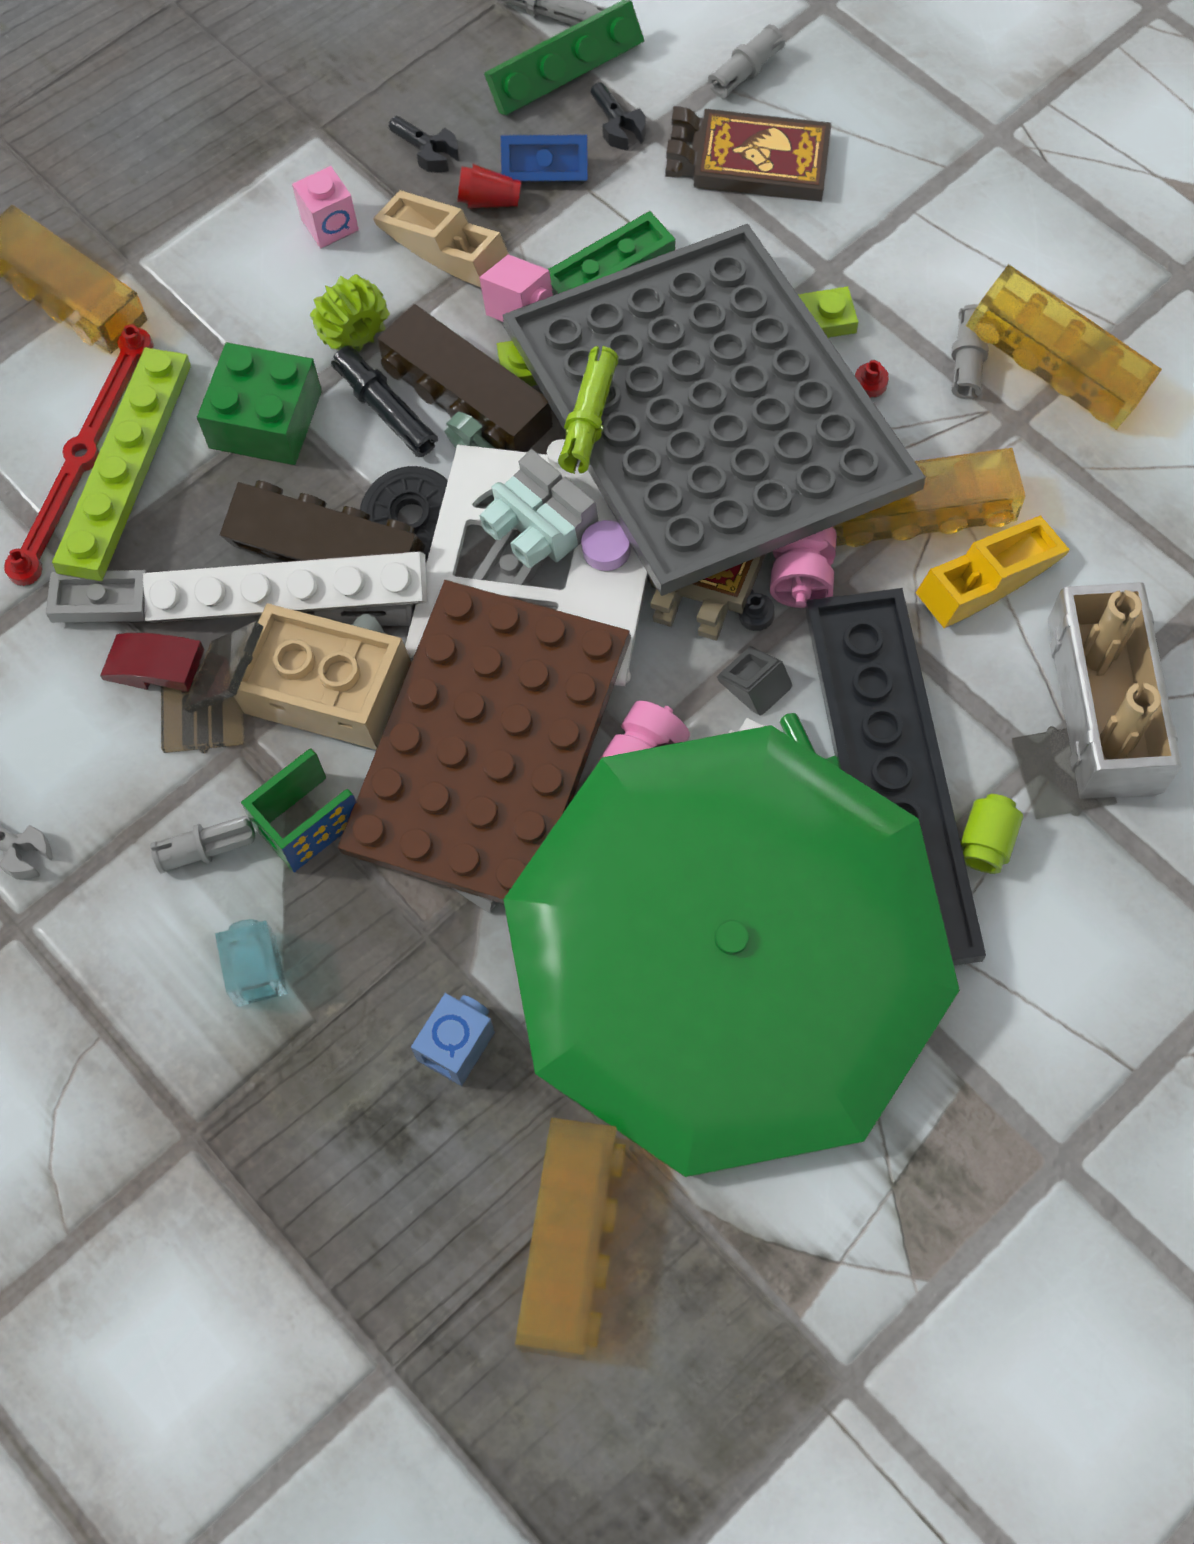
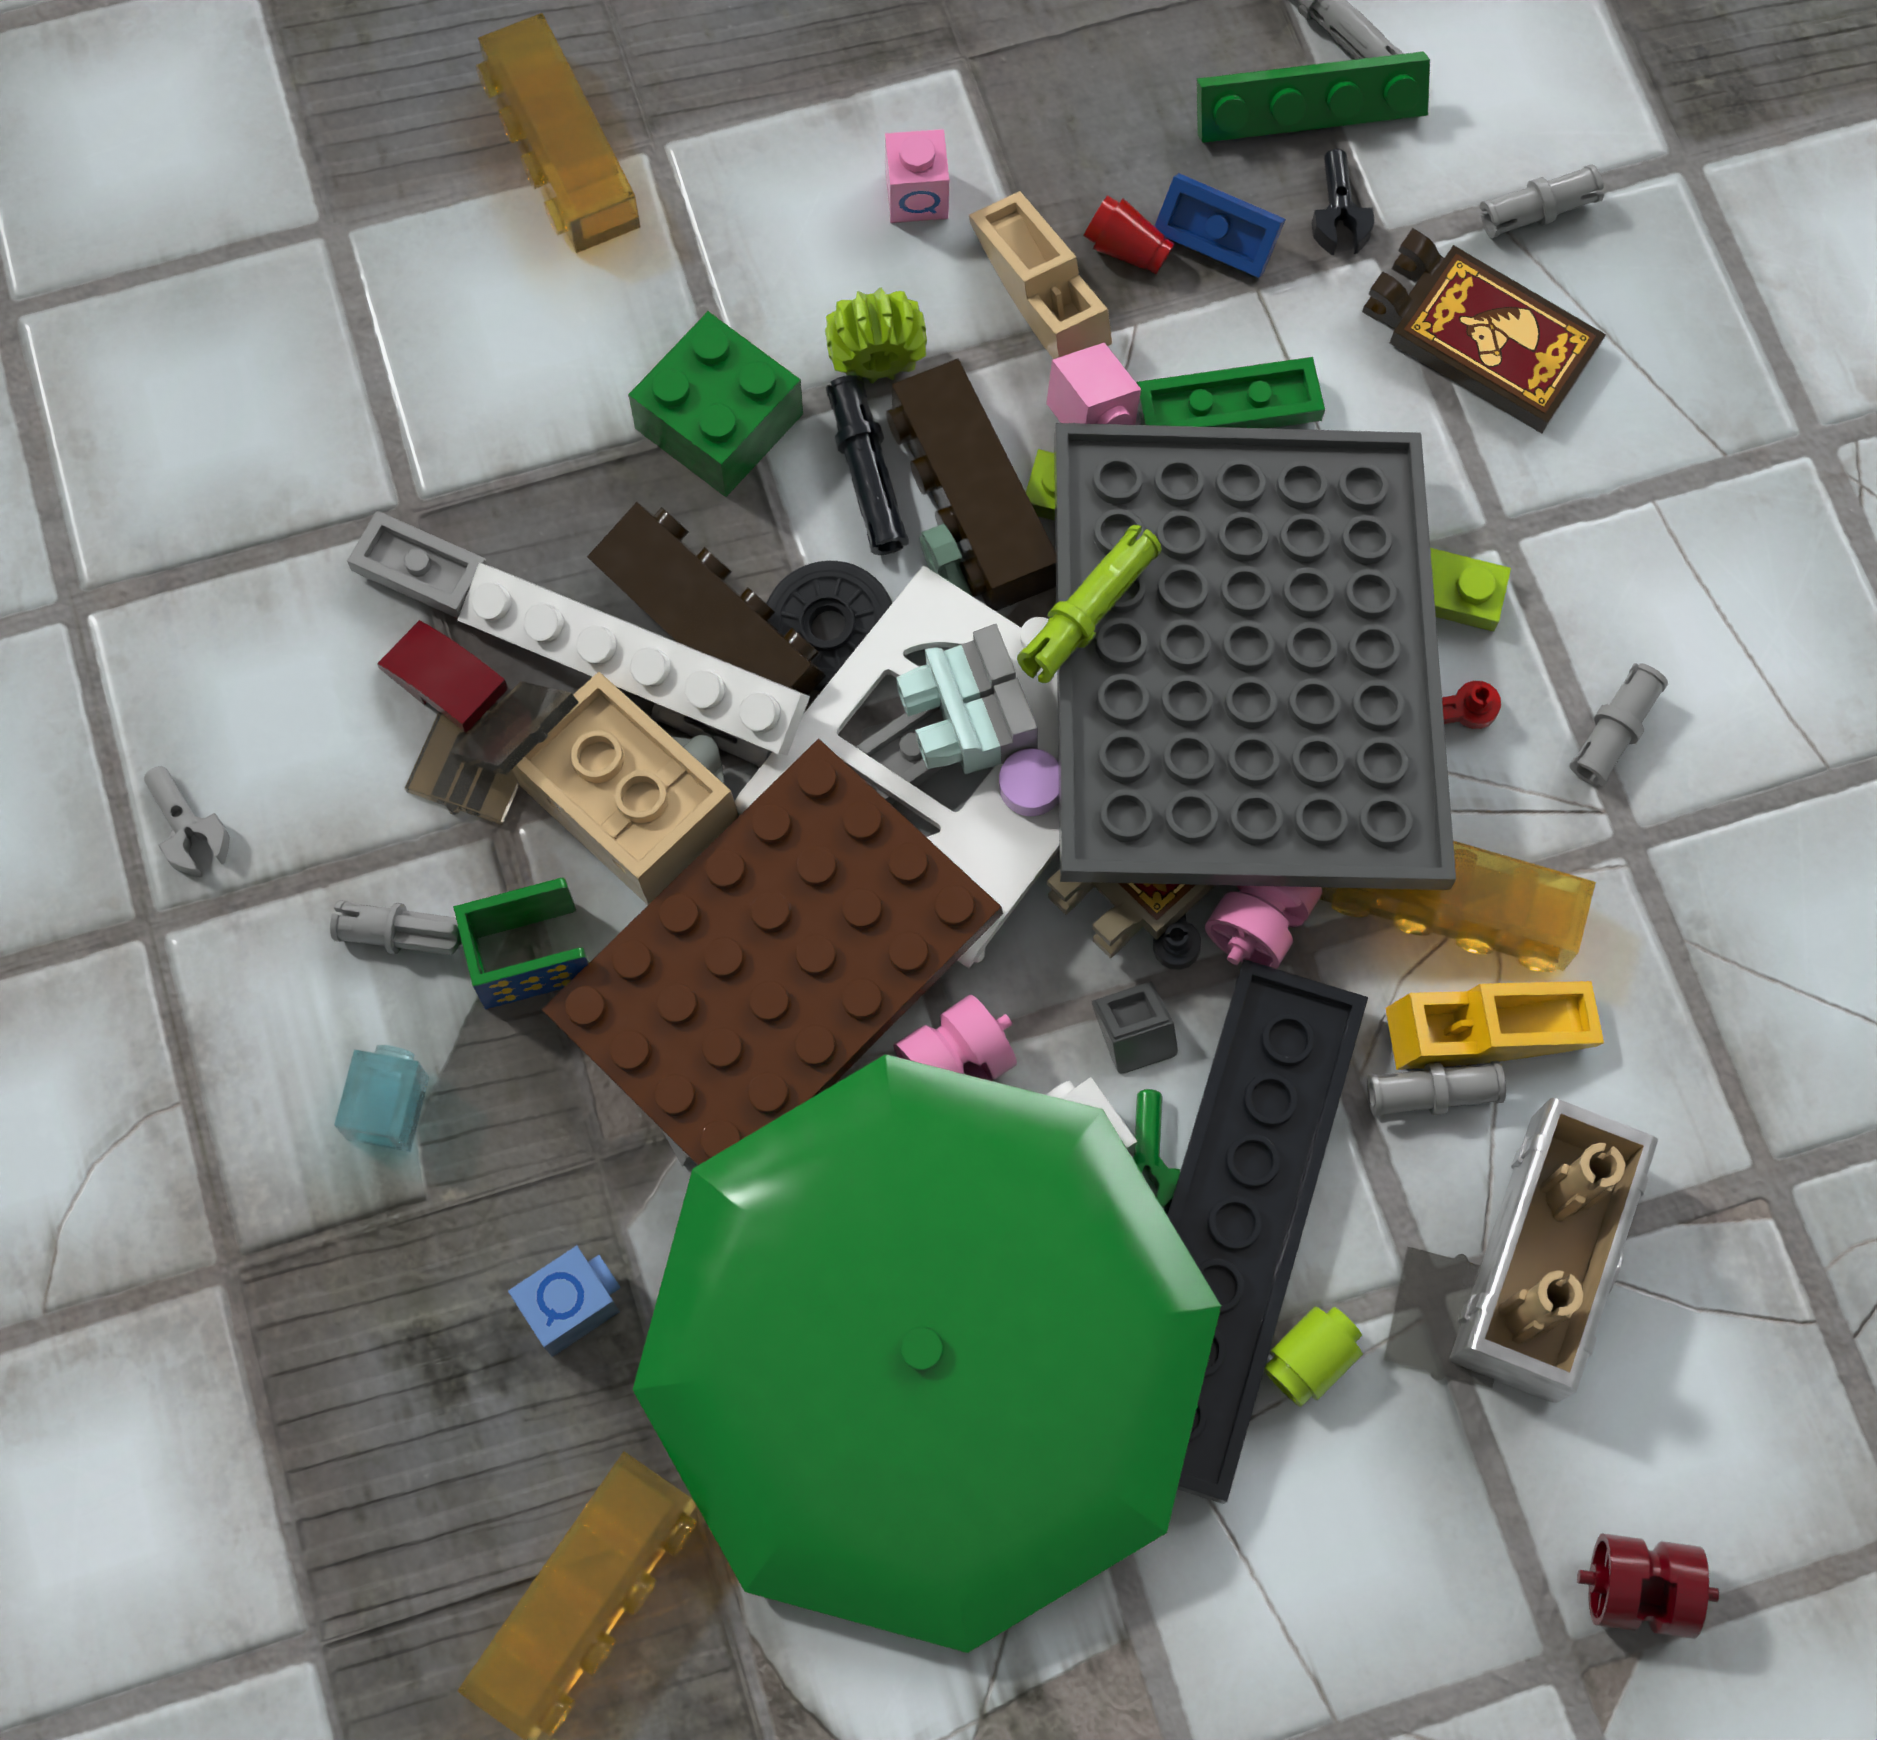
camera: 20 degrees right, 5 degrees up
(24, 564) = (354, 483): red piece -> none
(121, 465) = (521, 408): lime plate -> none
(429, 145) = (1085, 139): black bar -> none
(977, 627) = (1436, 1088): none -> light grey pin
(1063, 347) = (1732, 778): clear yellow brick -> none

